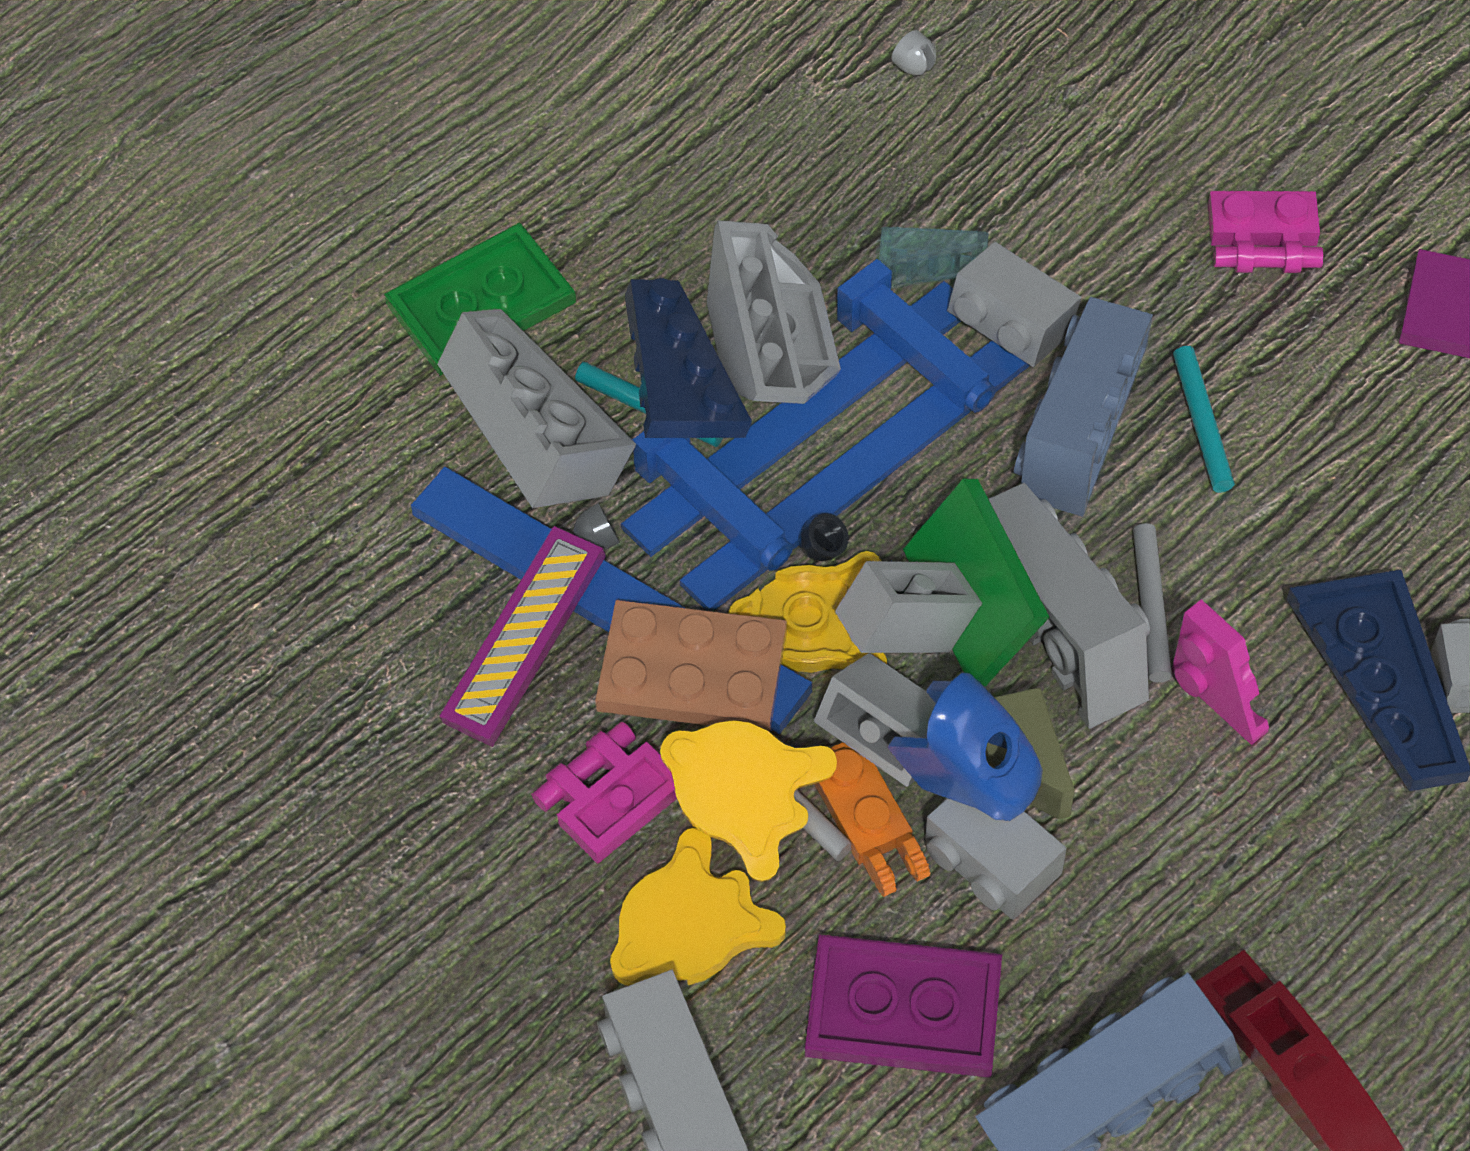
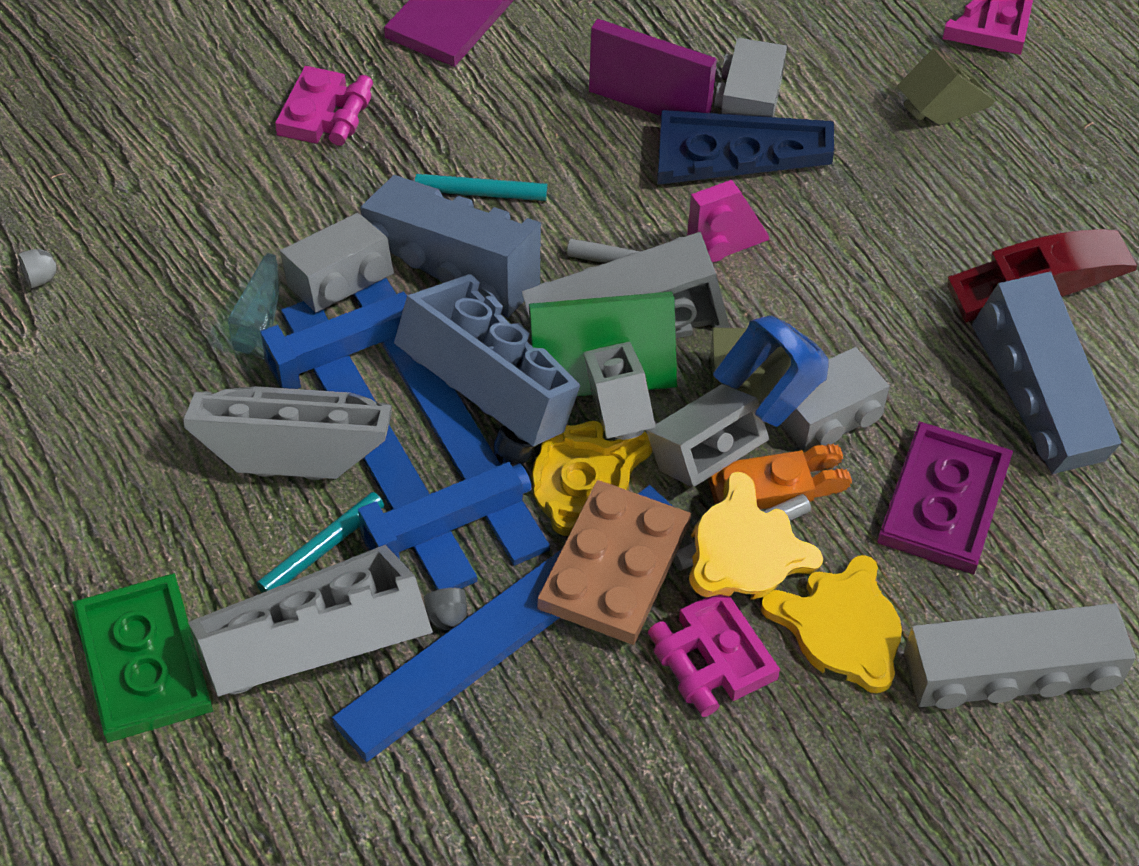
camera: 80 degrees left, 5 degrees down
(522, 636) = (543, 685): tile -> none
(679, 369) = (319, 493): dark blue wing -> none
(921, 454) = (487, 358): none -> sand blue wedge
(1442, 534) = (649, 71): none -> magenta tile

